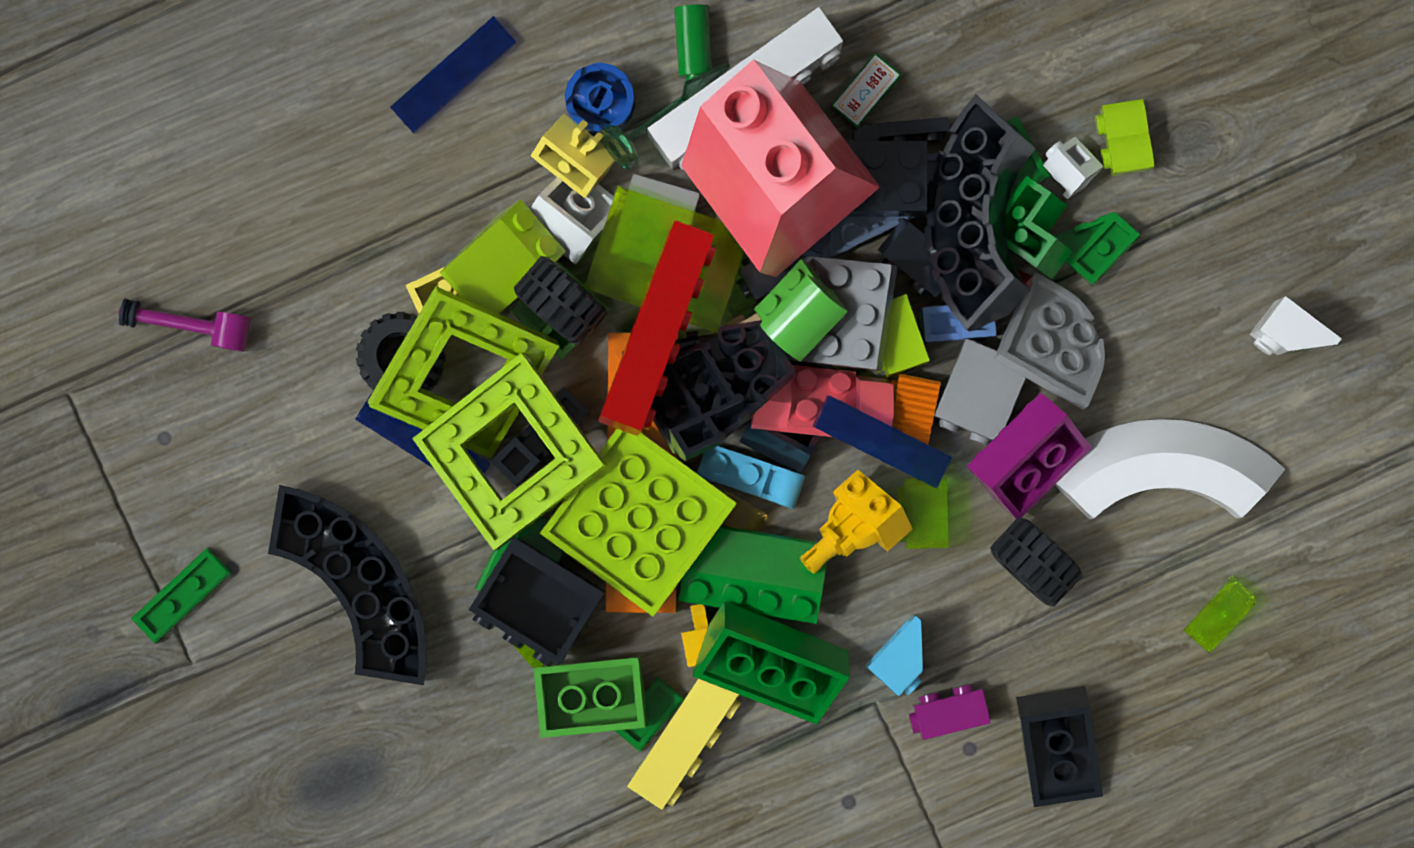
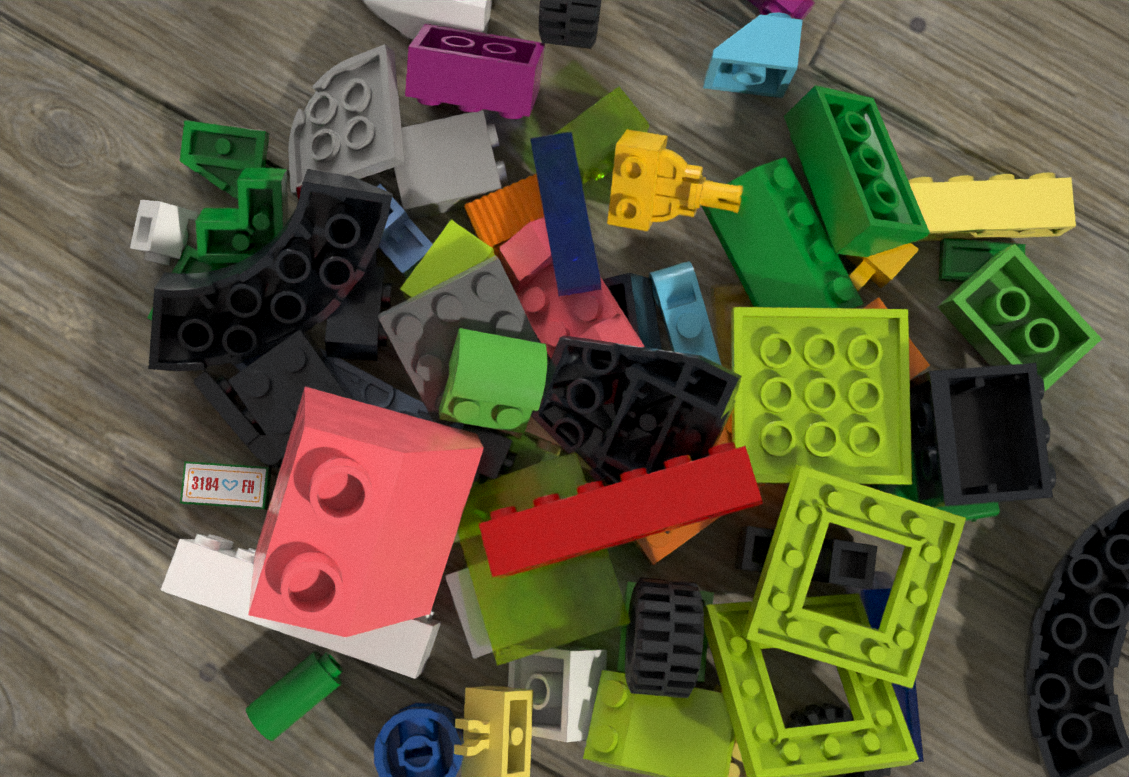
camera: 130 degrees left, 5 degrees down
(621, 146) = (452, 692): clear green piece -> none
(1126, 138) = (97, 200): lime brick -> none

